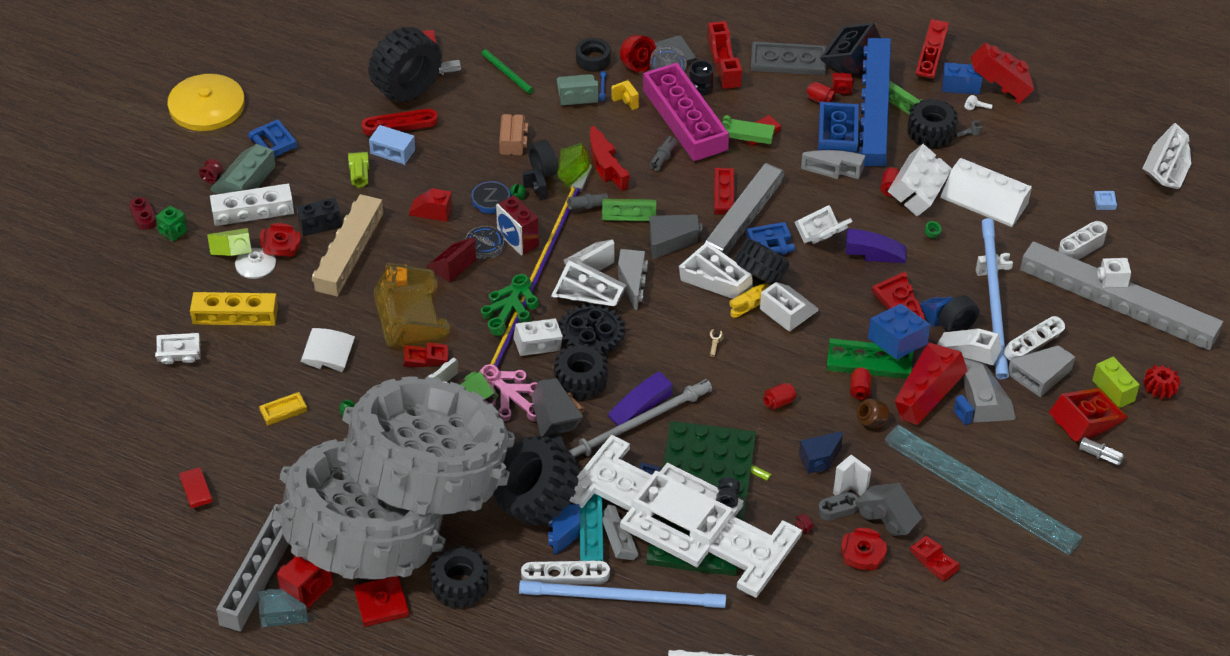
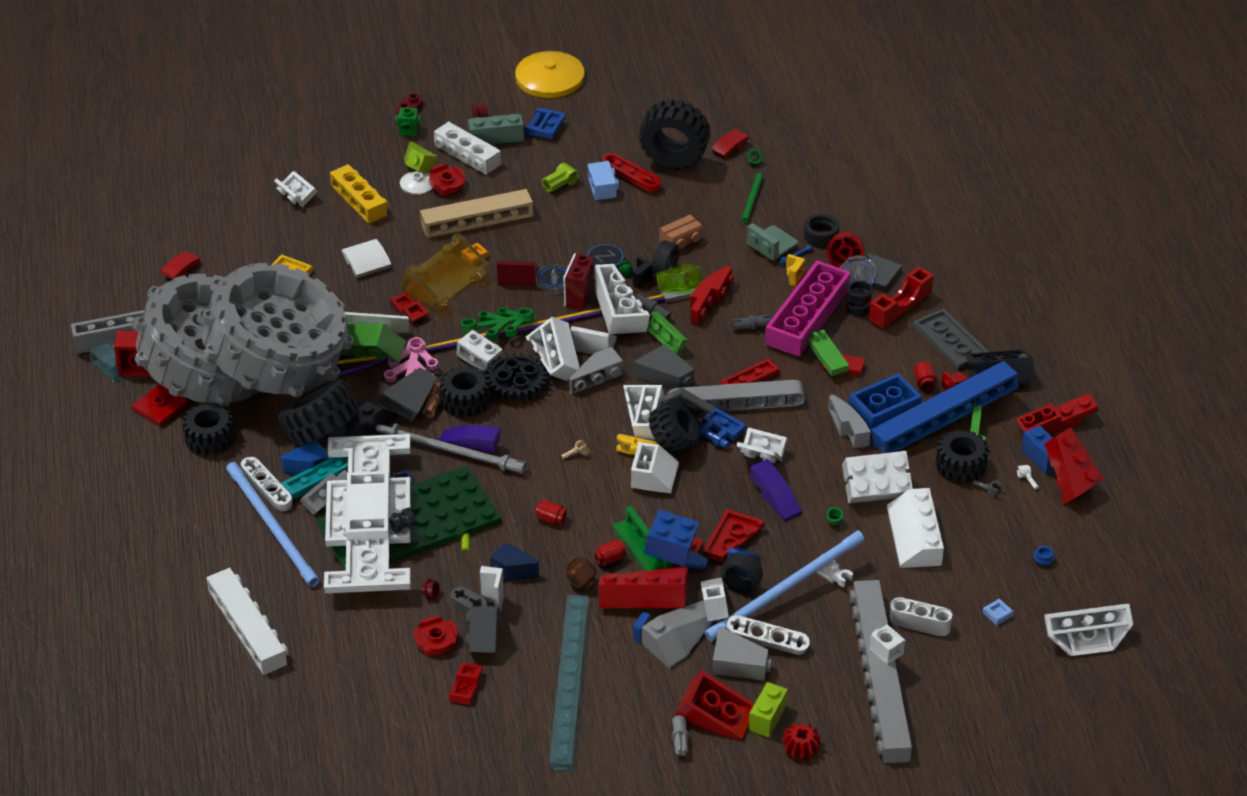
camera: 55 degrees right, 5 degrees down
(319, 216) = (486, 182): black brick -> none
(433, 204) = (562, 234): red slope -> none
(450, 66) = (715, 163): light grey axle -> none
(463, 44) = (752, 153): none -> green hinge
(568, 215) = (617, 302): none -> white wedge
(734, 244) = (697, 405): none -> dark grey tile
(1069, 142) = (1044, 555): none -> blue plate

